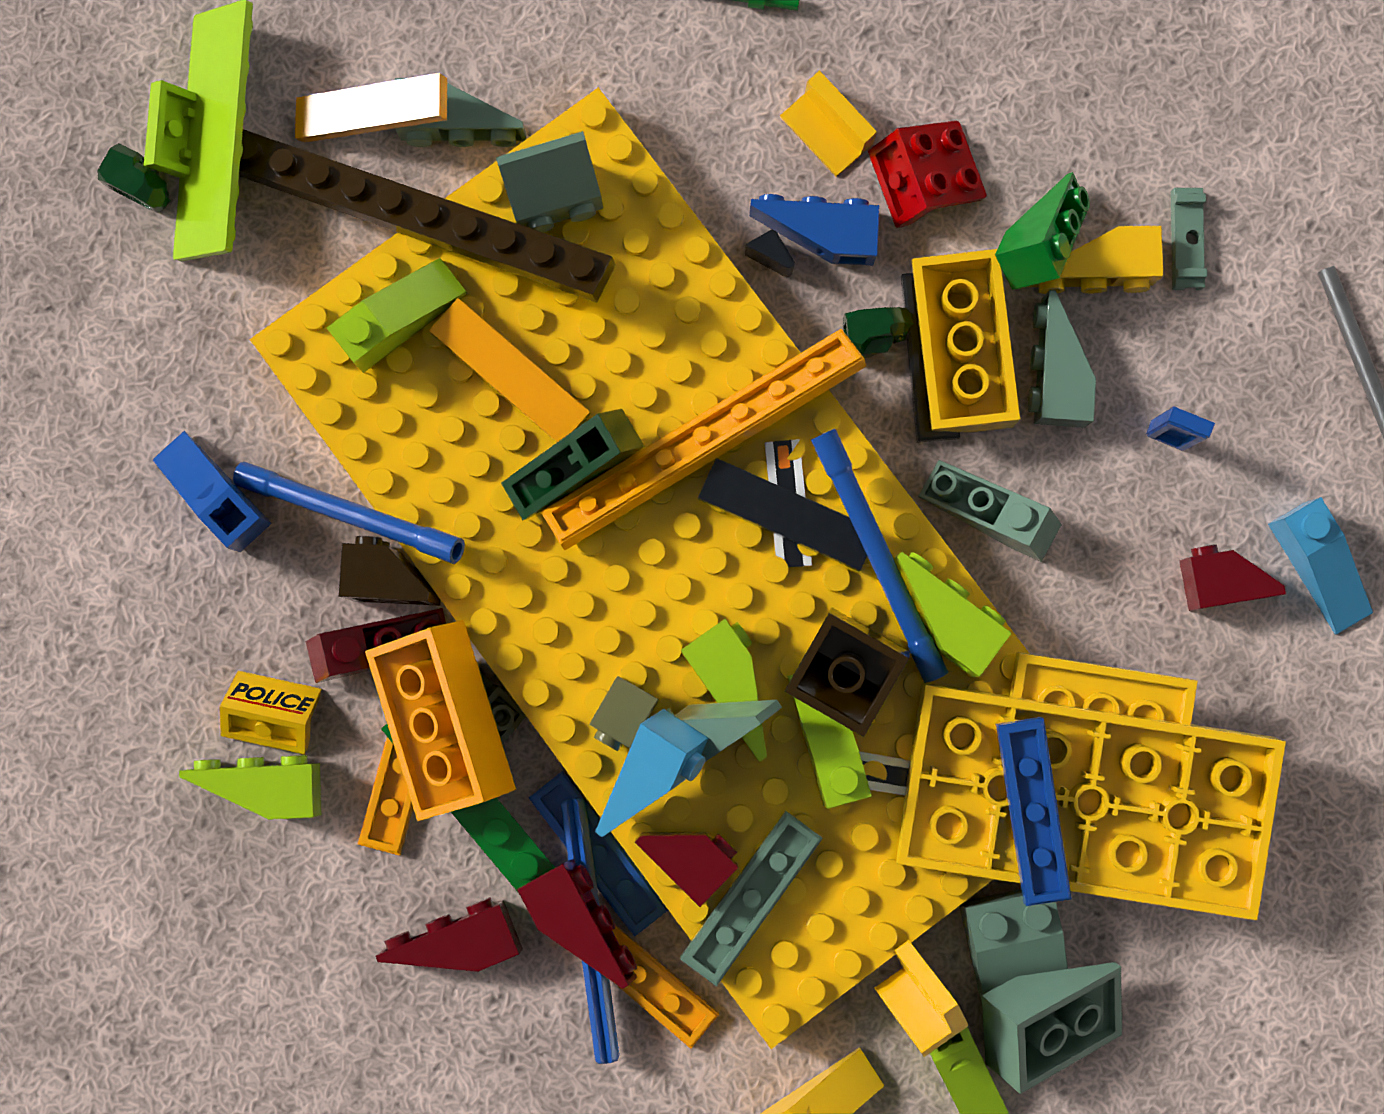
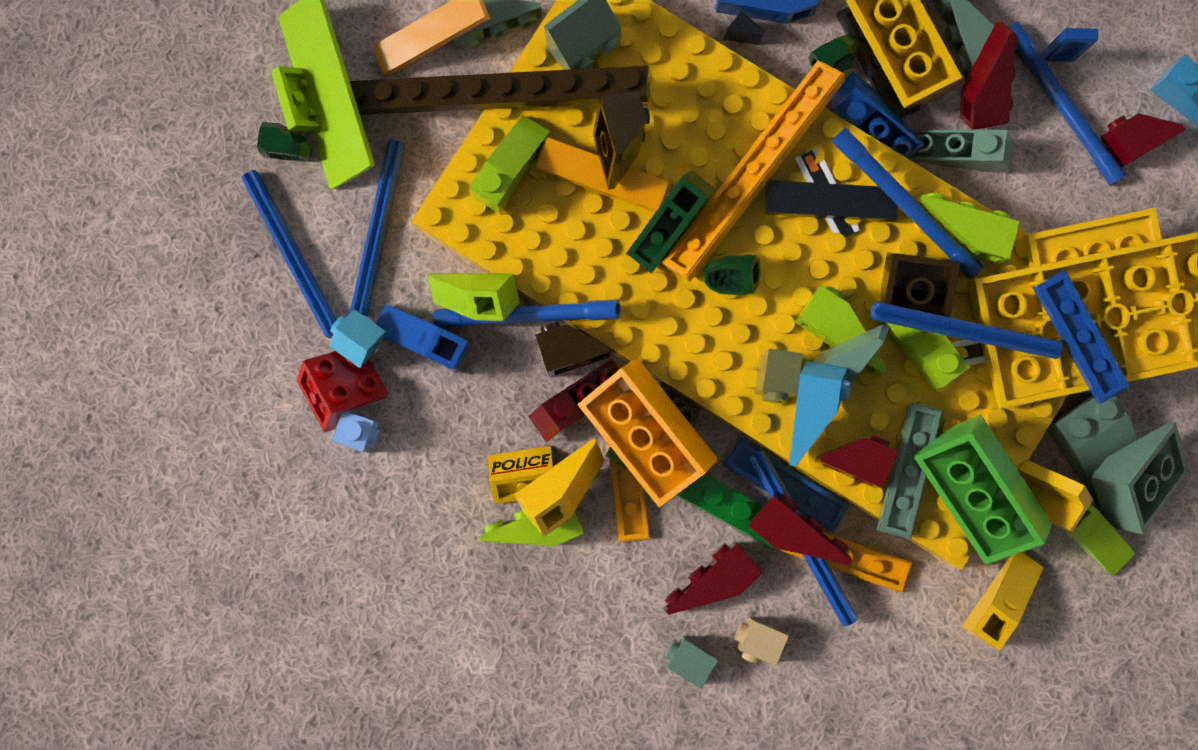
camera: 20 degrees left, 0 degrees up
(81, 579) = (357, 432): none -> light blue brick
(86, 510) = (337, 386): none -> red bracket
(92, 323) = (290, 251): none -> blue axle
(126, 460) = (356, 337): none -> medium azure brick
(209, 335) = (378, 227): none -> blue axle
(295, 464) = (475, 294): none -> lime slope
(299, 752) = (557, 493): none -> yellow slope
(386, 1031) = (690, 661): none -> sand green brick
(484, 1040) = (760, 642): none -> tan brick
(545, 330) = (619, 133): none -> dark brown slope
(623, 562) = (733, 274): none -> dark green rock
(833, 961) = (984, 491): none -> bright green slope
(883, 747) = (965, 330): none -> blue axle
(892, 426) = (869, 112): none -> blue slope
(1049, 444) = (987, 90): none -> dark red slope
(1169, 589) = (1101, 156): none -> blue piece

